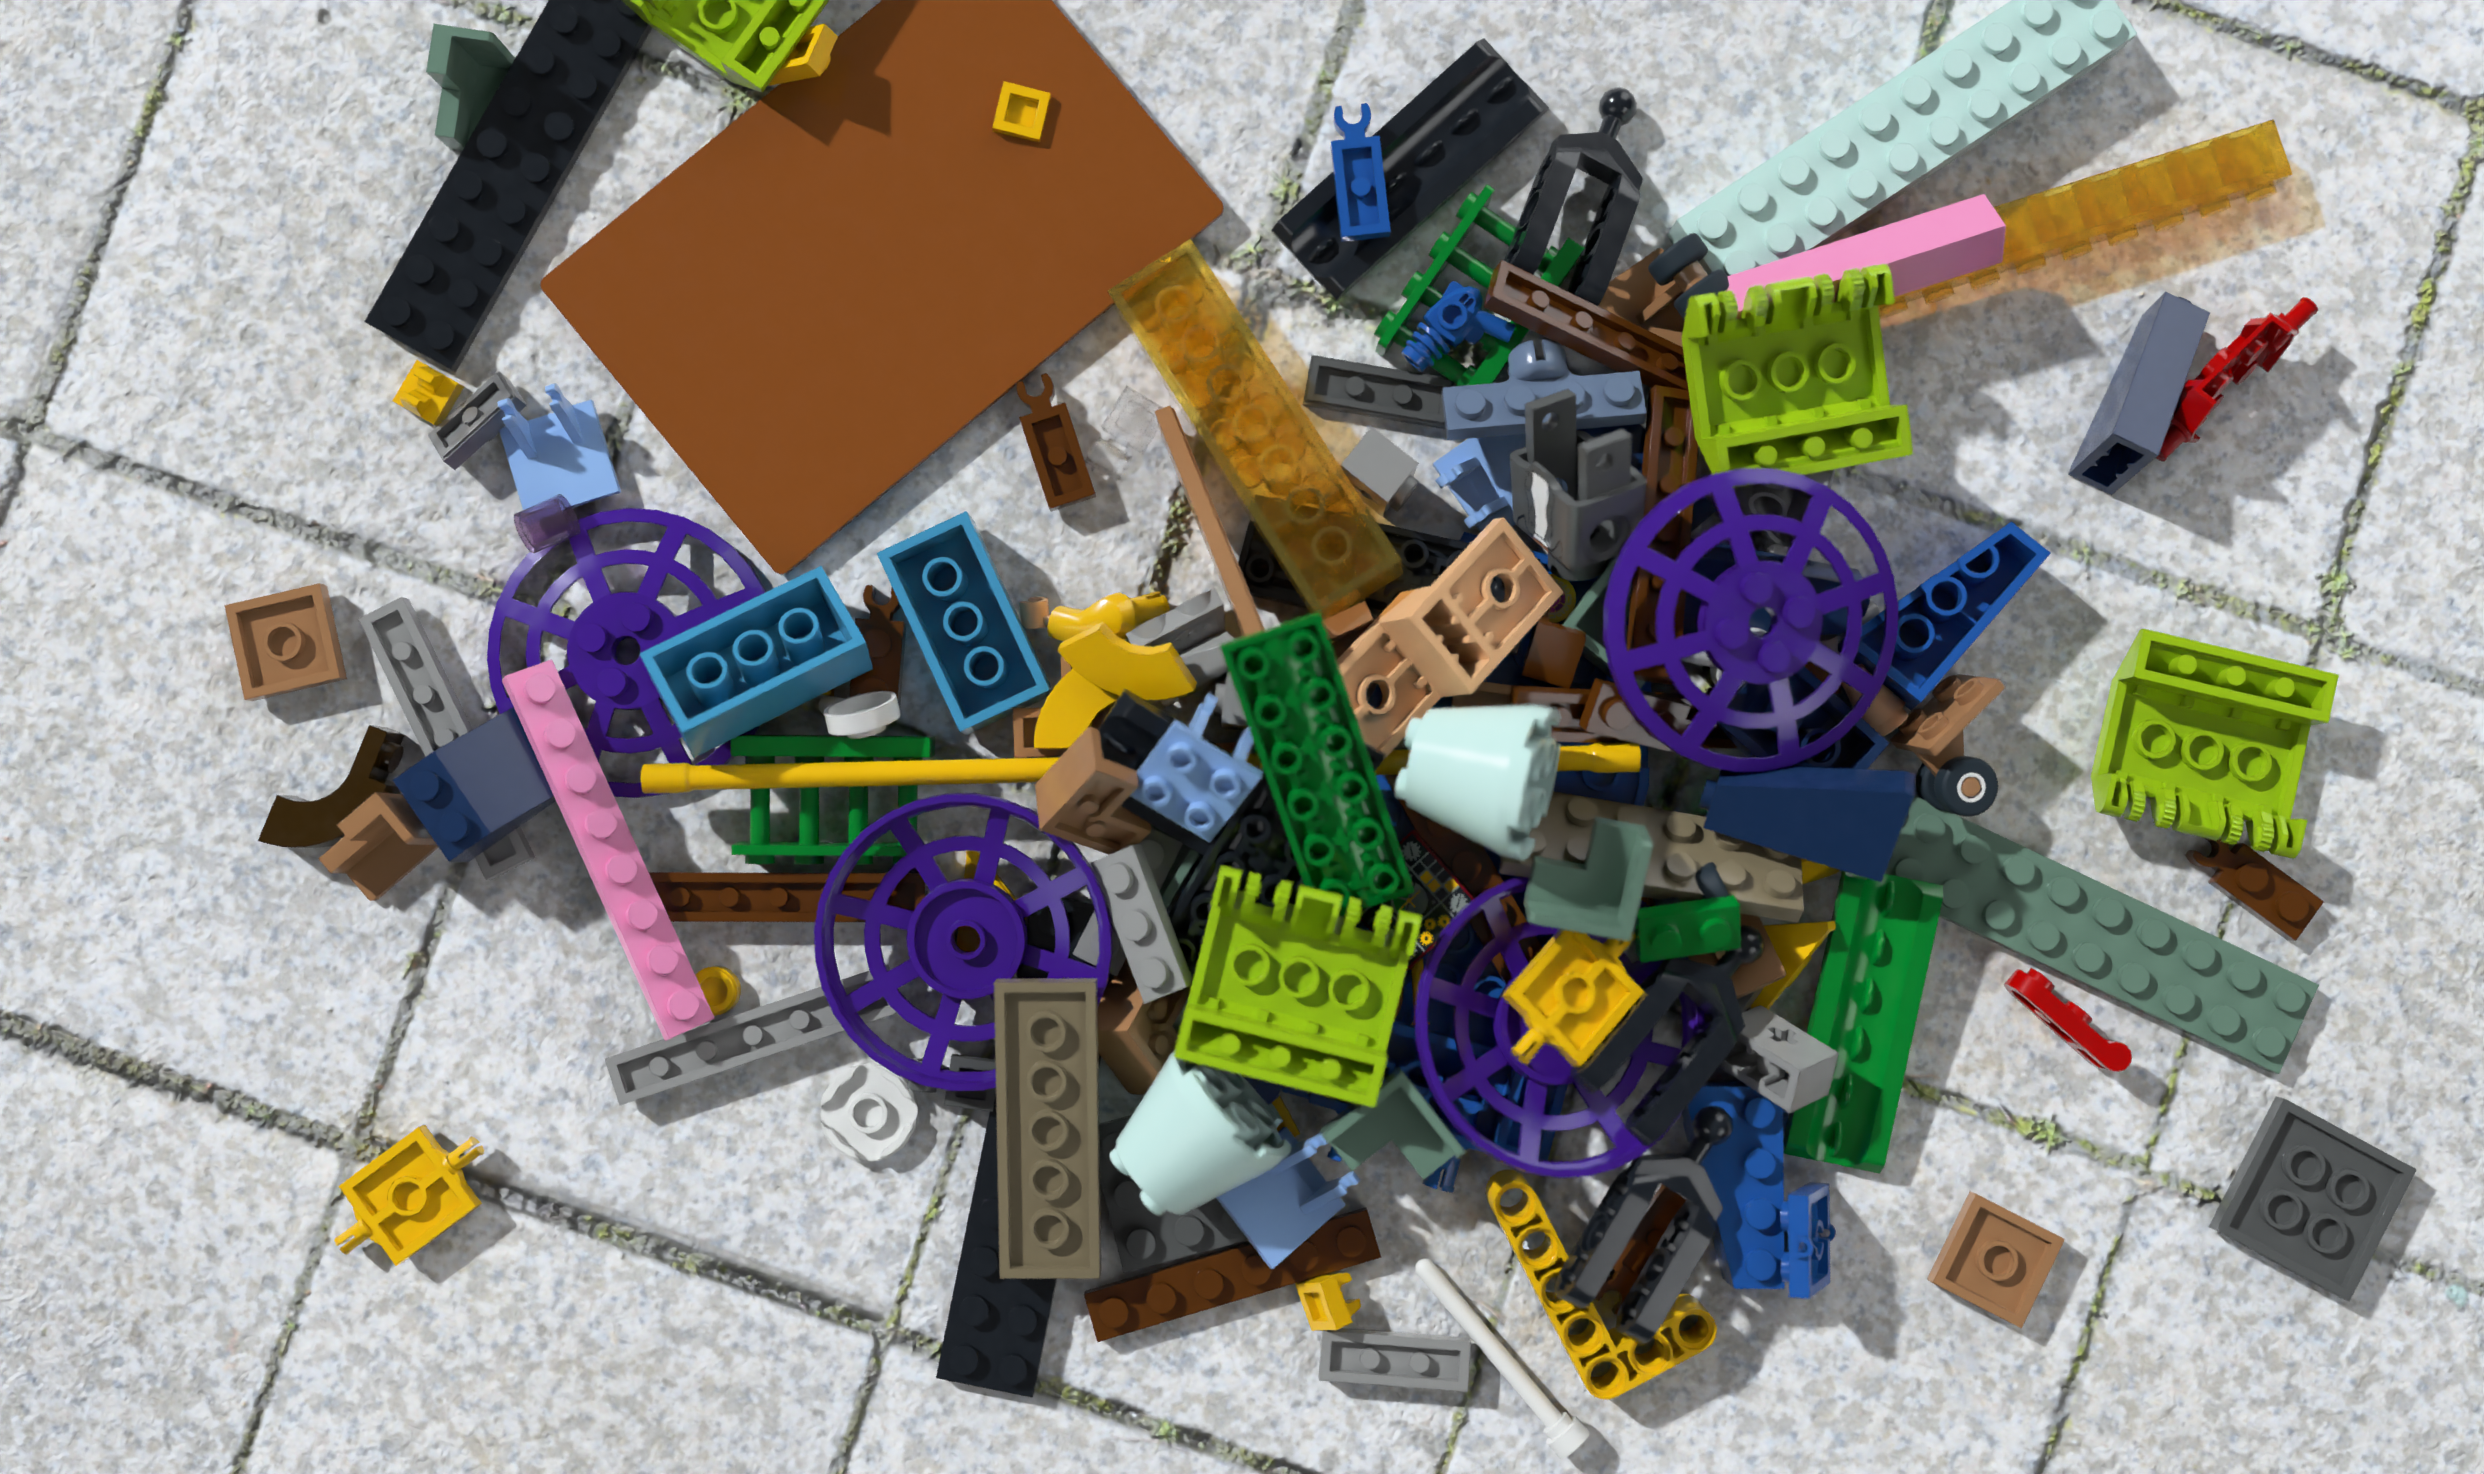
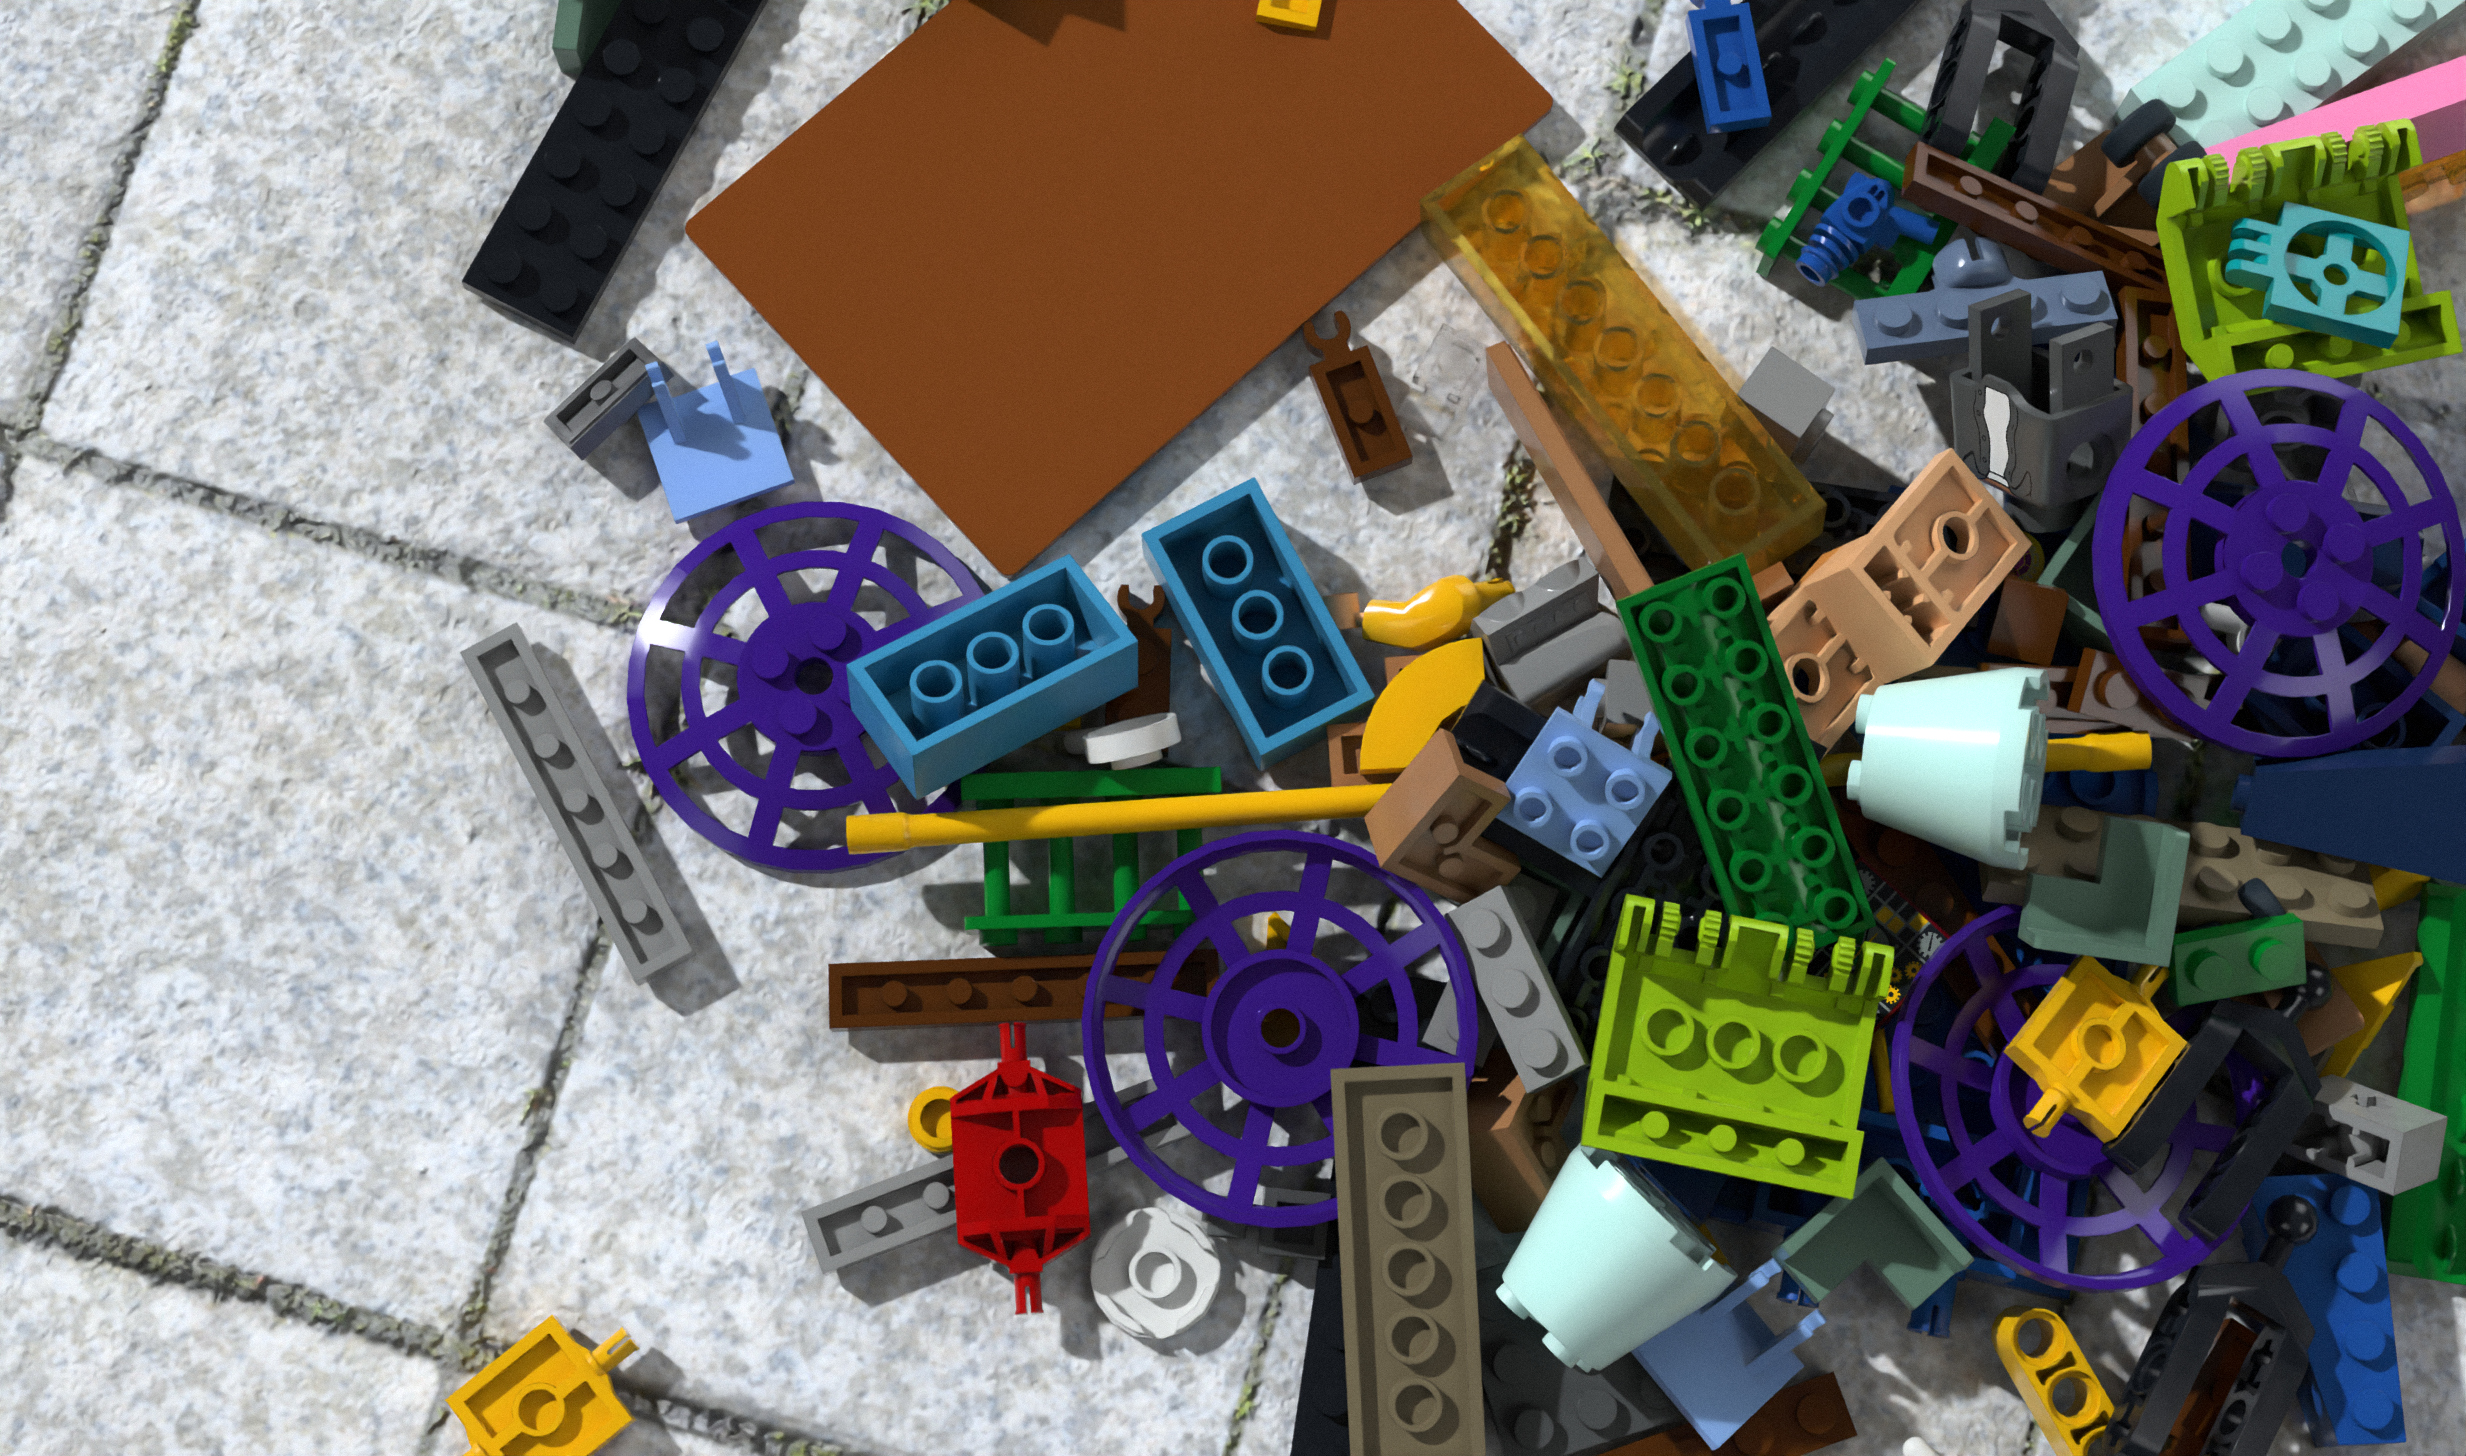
camera: 10 degrees left, 10 degrees down
(285, 642) = (362, 688): medium nougat plate -> none
(314, 823) = (446, 903): dark brown arch -> none
(379, 844) = (498, 942): medium nougat panel -> none
(428, 393) = (541, 370): yellow tile -> none
(477, 787) = (645, 847): dark blue slope -> none
(547, 524) = (705, 521): clear purple beam -> none
(608, 849) = (803, 933): bright pink plate -> none
(785, 997) = (1029, 1221): none -> red plate
(1118, 665) = (1464, 653): yellow tile -> none
(1375, 391) = (1765, 317): dark grey tile -> none
(1481, 477) = (1908, 412): light blue plate -> none
(1761, 380) = (2262, 263): none -> teal piece
(1808, 1260) = (2430, 1404): blue plate -> none

